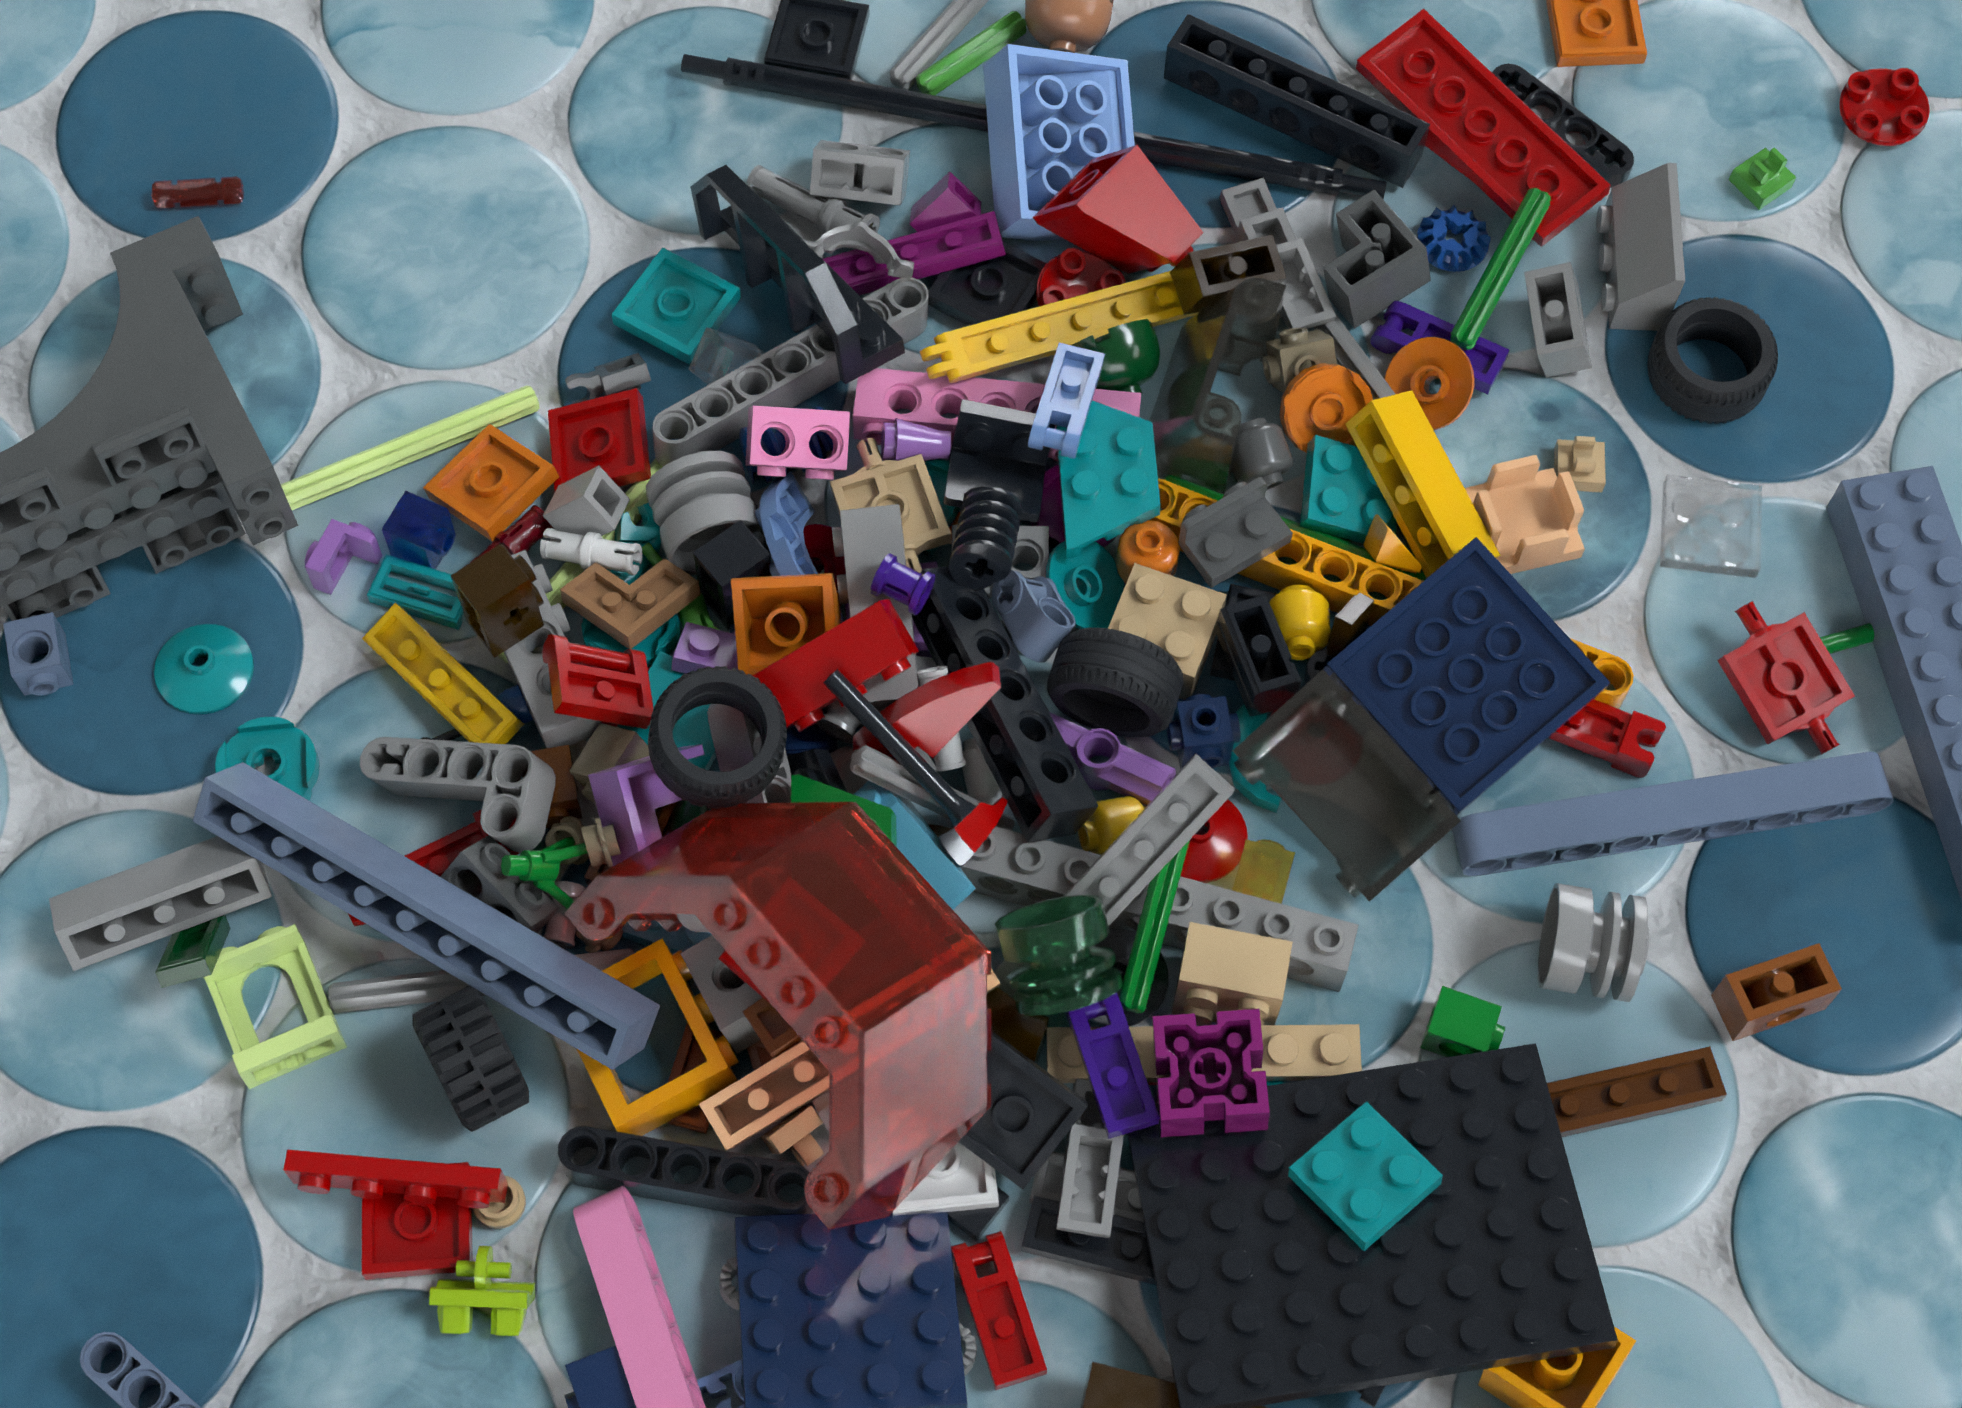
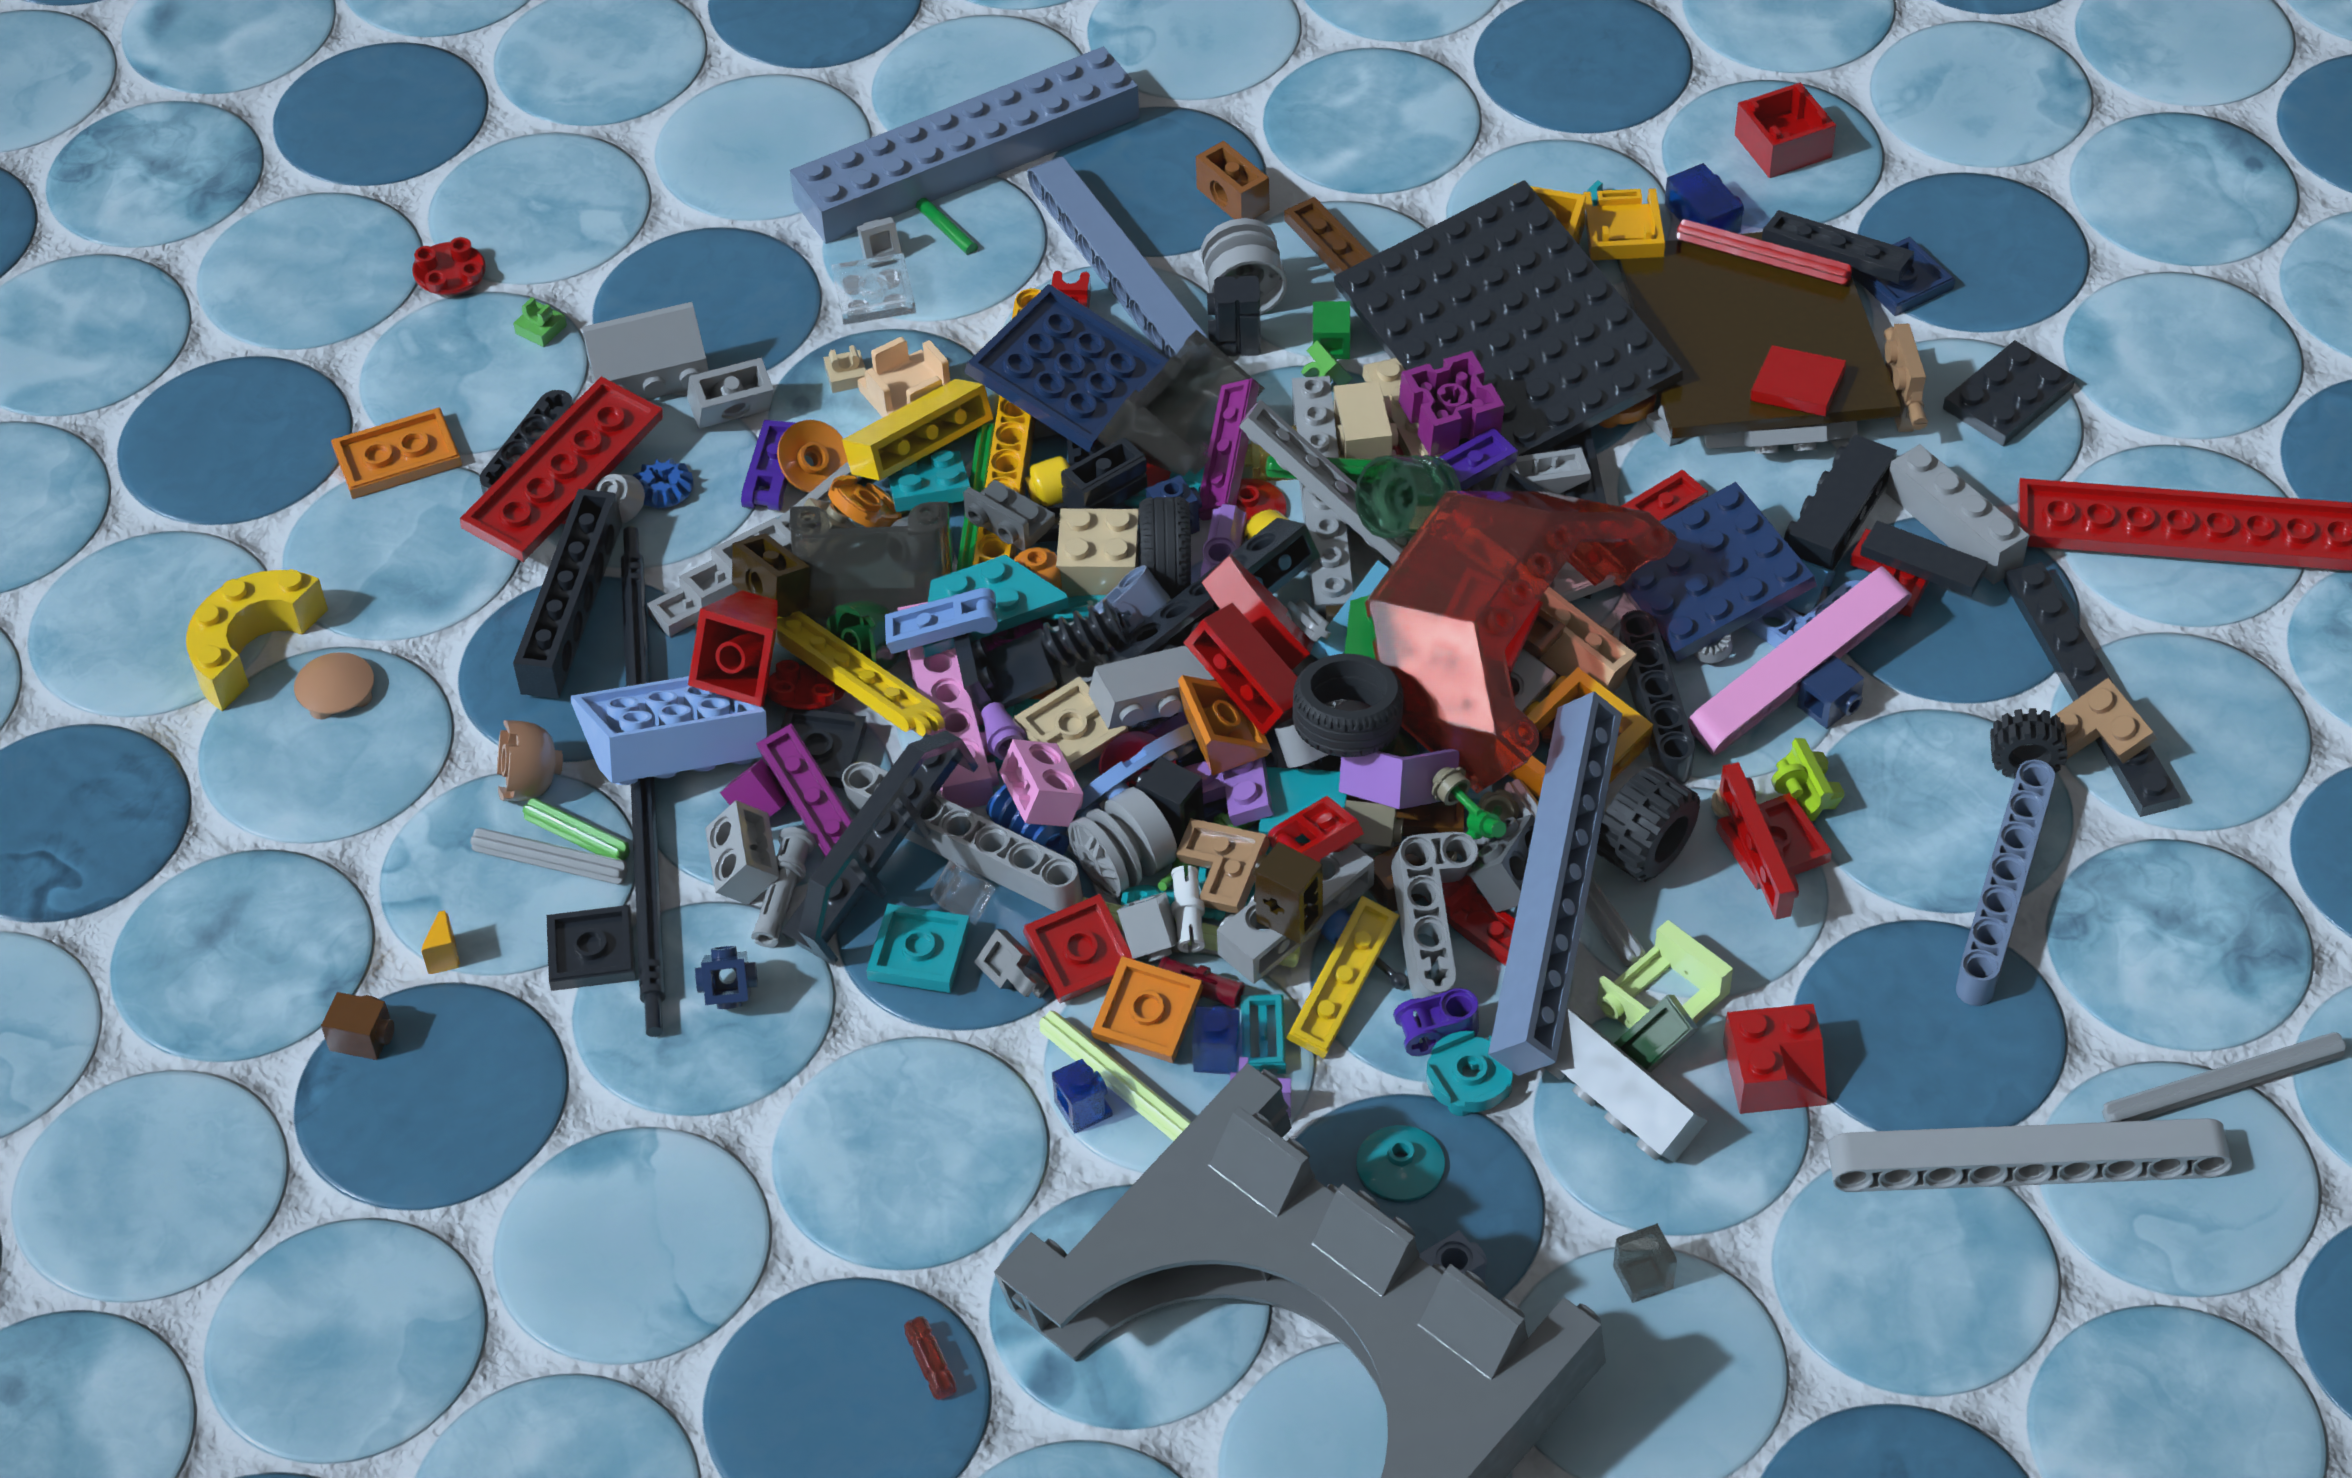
camera: 105 degrees left, 15 degrees down
(117, 1079) = (1775, 1058): none -> red slope
(339, 752) = (1436, 1018): none -> dark purple piece
(414, 390) = (1080, 1095): none -> clear blue brick
(704, 122) = (721, 992): none -> dark blue brick
(863, 238) = (821, 806): light grey helmet -> none
(902, 584) = (1166, 634): dark purple bush -> none
(970, 822) = (1320, 584): black piece -> none
(1296, 829) = (1227, 447): none -> magenta tile
(1349, 623) = (1050, 443): dark brown tile -> none
(1365, 1176) = (1477, 320): teal plate -> none
(1379, 263) = (711, 498): dark grey brick -> none
(1388, 549) = (973, 441): light orange slope -> none
(1396, 1000) = (1325, 365): none -> bright green tile
(1434, 182) = (628, 491): none -> light grey cone
(1500, 268) = (701, 424): green axle -> none
(1504, 903) = (1236, 315): none -> black brick
(1720, 322) = (734, 284): black tyre -> none
(1786, 678) = (986, 225): red plate -> none
(1797, 550) = (879, 238): none -> light grey tile

